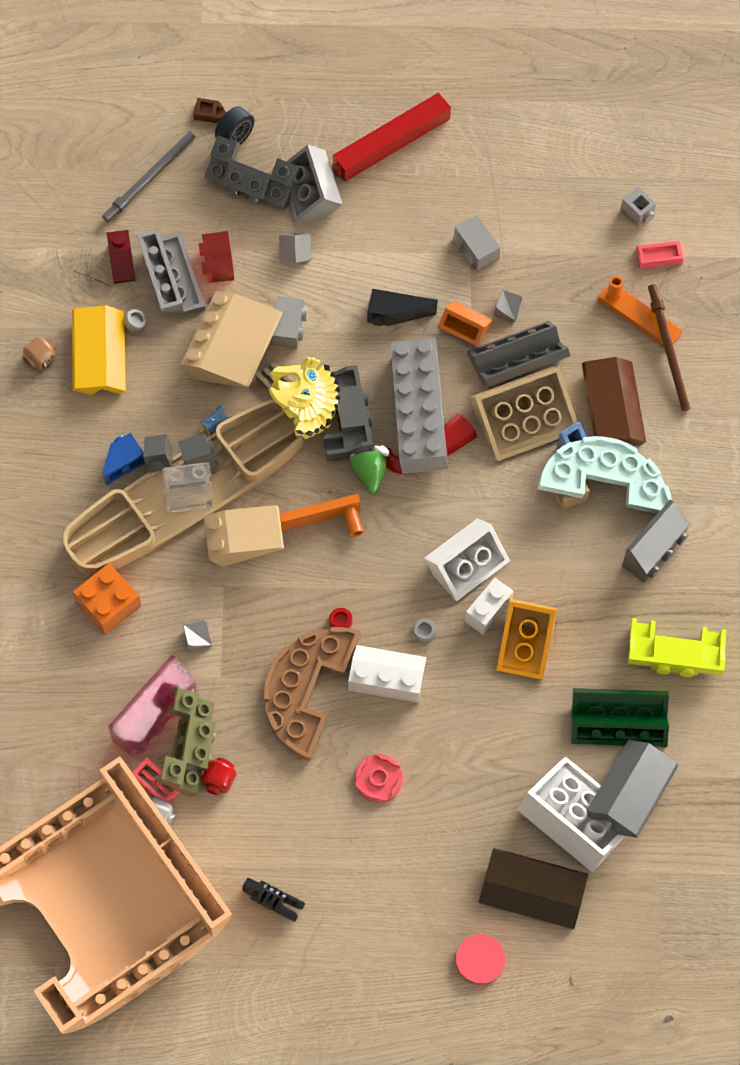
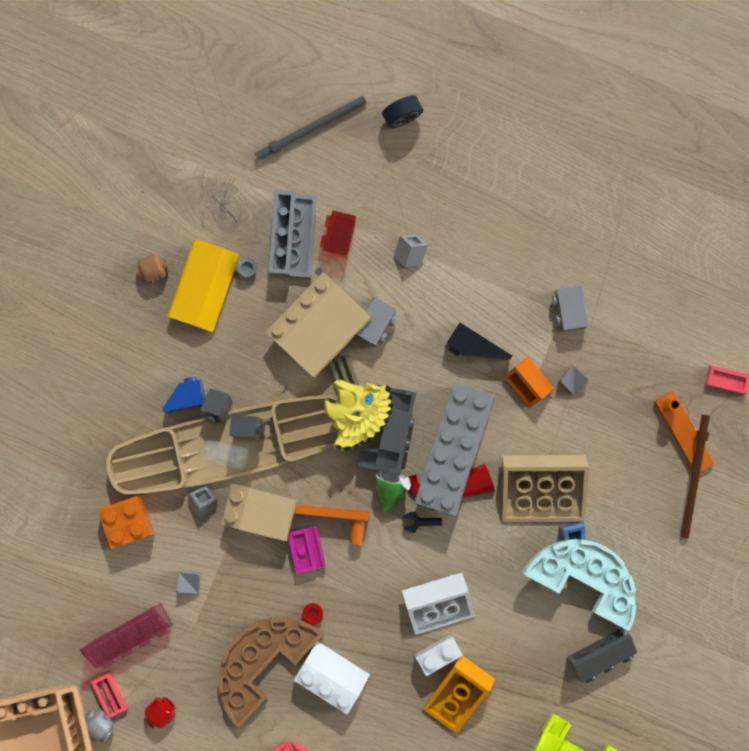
camera: 25 degrees right, 20 degrees up
(121, 256) = (255, 201): dark red slope -> none
(179, 553) = (202, 501): none -> light grey slope
(191, 745) = (146, 680): olive bracket -> none
(208, 110) = (390, 82): reddish brown tile -> none
(214, 419) = (272, 391): flat silver piece -> none
(272, 187) = (395, 169): dark grey bracket -> none
(308, 558) = (306, 549): none -> dark pink plate
(315, 187) = (448, 193): light grey slope -> none
(391, 137) = (539, 172): red brick -> none
(413, 491) = (421, 522): none -> black bar
(424, 630) = (377, 650): light grey tile -> none
(518, 353) = (562, 430): dark grey slope -> none
(614, 400) = (624, 508): reddish brown slope -> none
(638, 206) = (732, 322): light grey brick -> none

